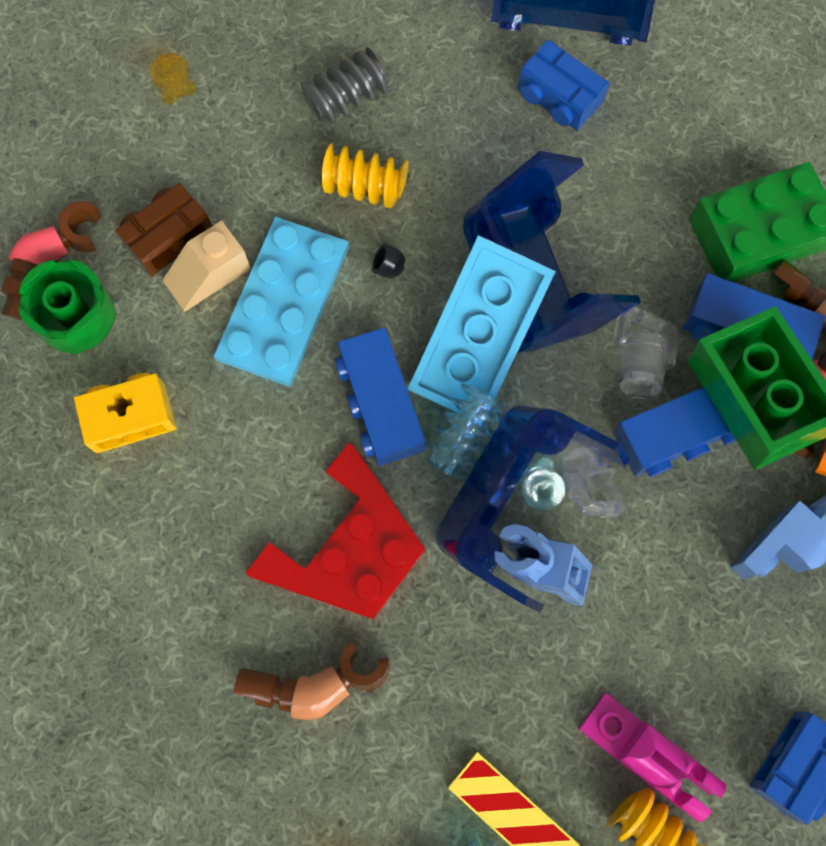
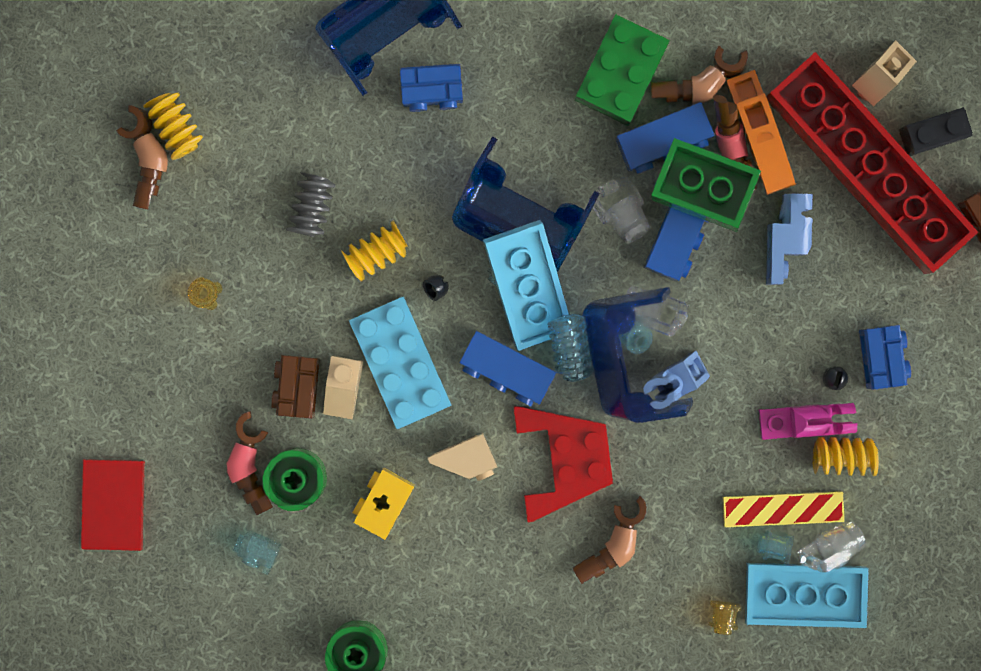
camera: 40 degrees left, 15 degrees up
(252, 447) = (467, 458): none -> tan slope
(718, 732) = (830, 377): none -> black hinge

